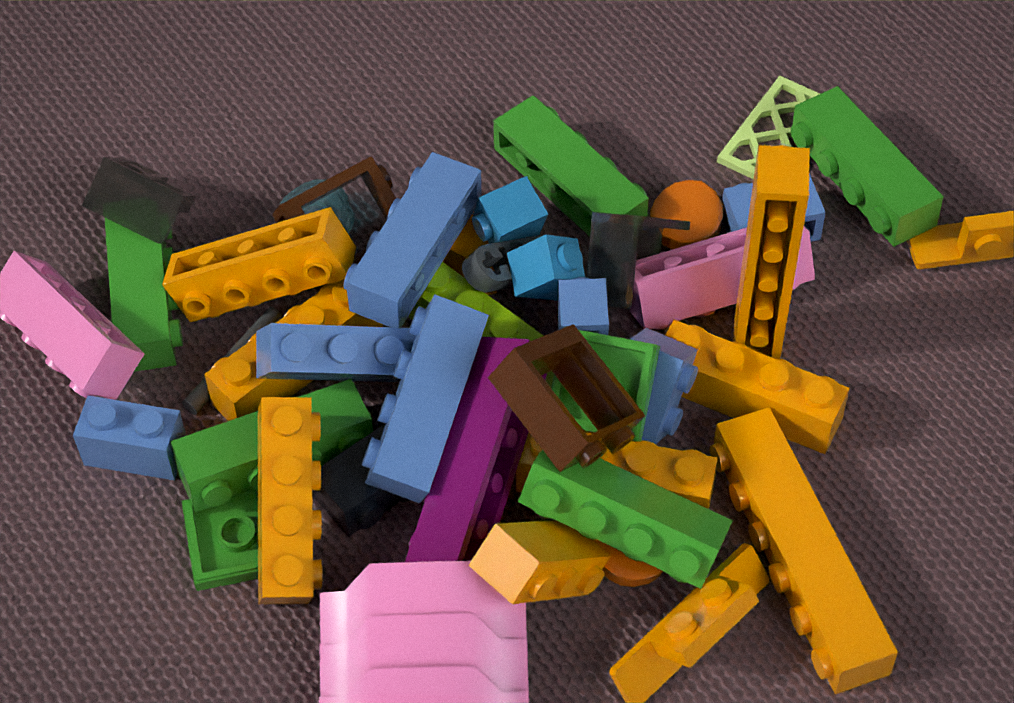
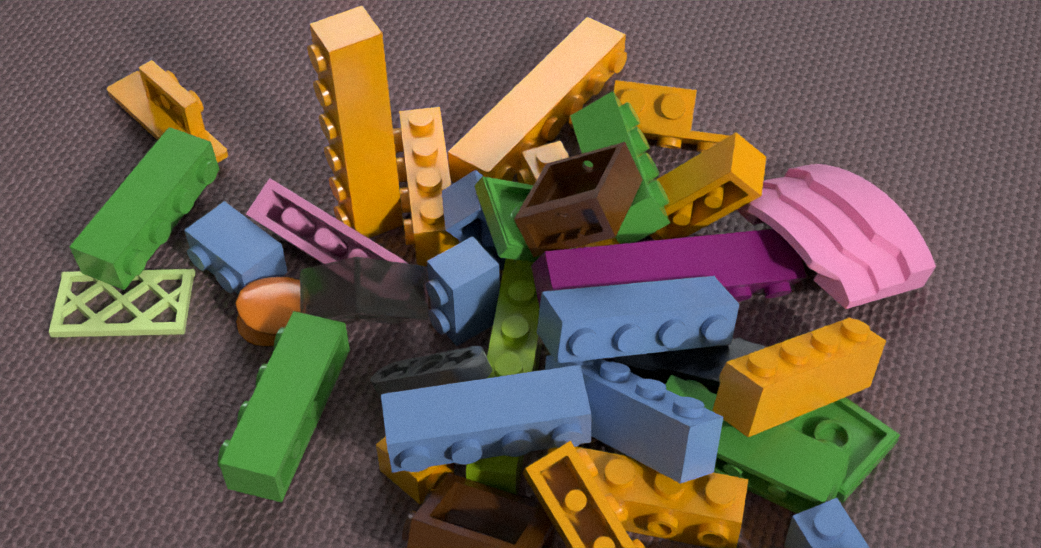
camera: 125 degrees left, 5 degrees down
(509, 213) = (384, 371): dark azure slope -> none
(541, 265) = (425, 328): dark azure slope -> none

